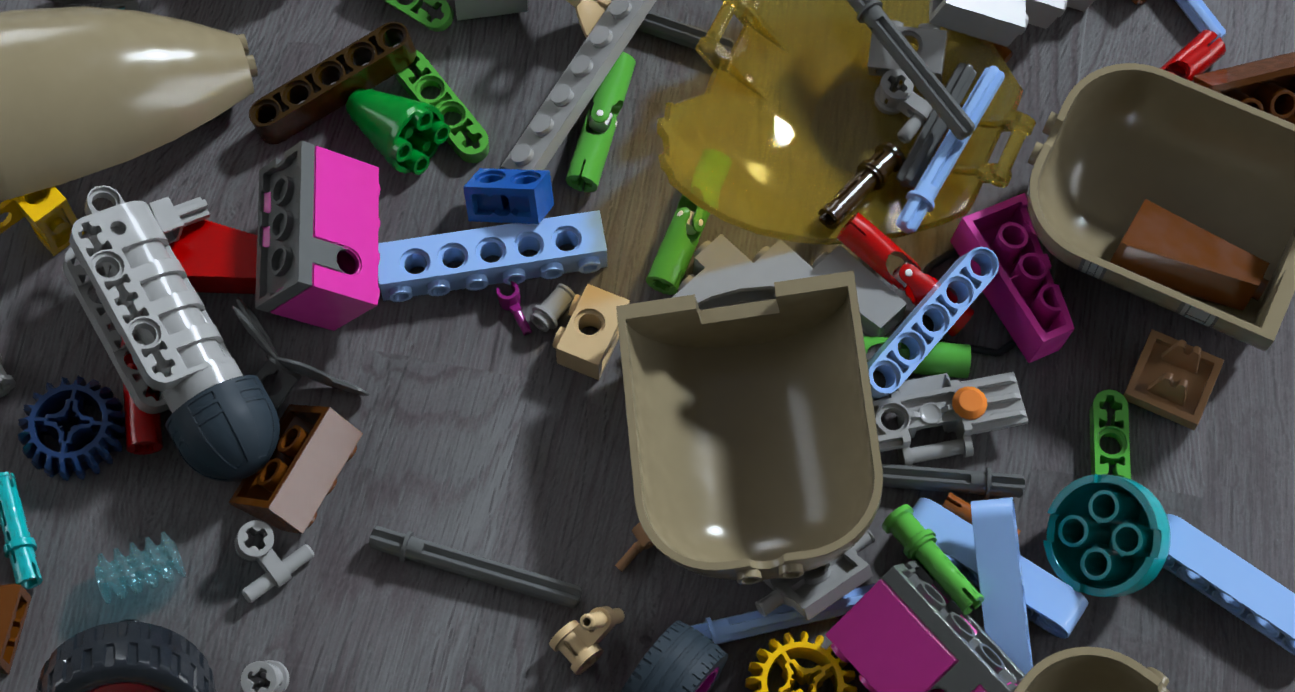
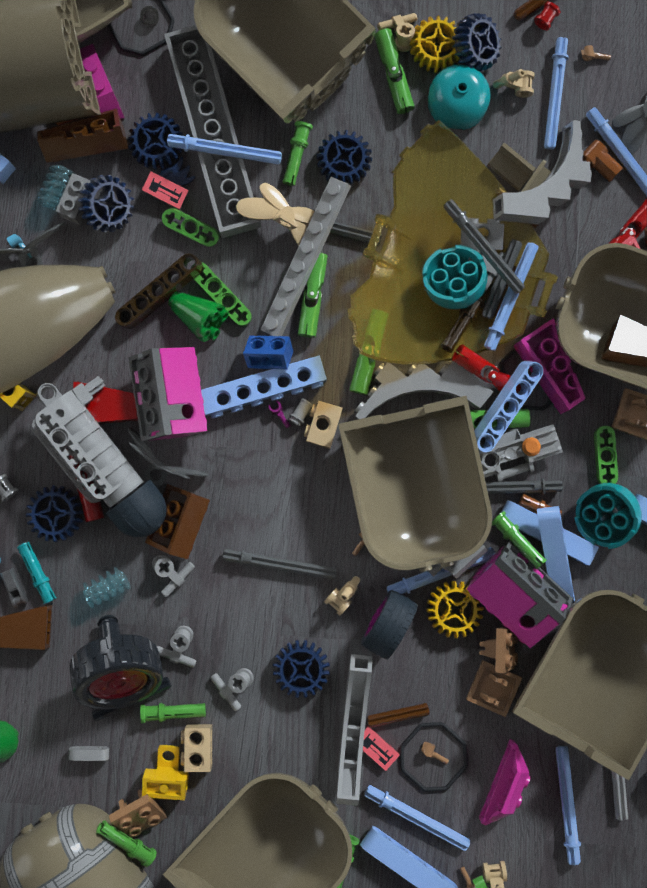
camera: 10 degrees left, 20 degrees up
(854, 106) = (454, 280): none -> teal cylinder

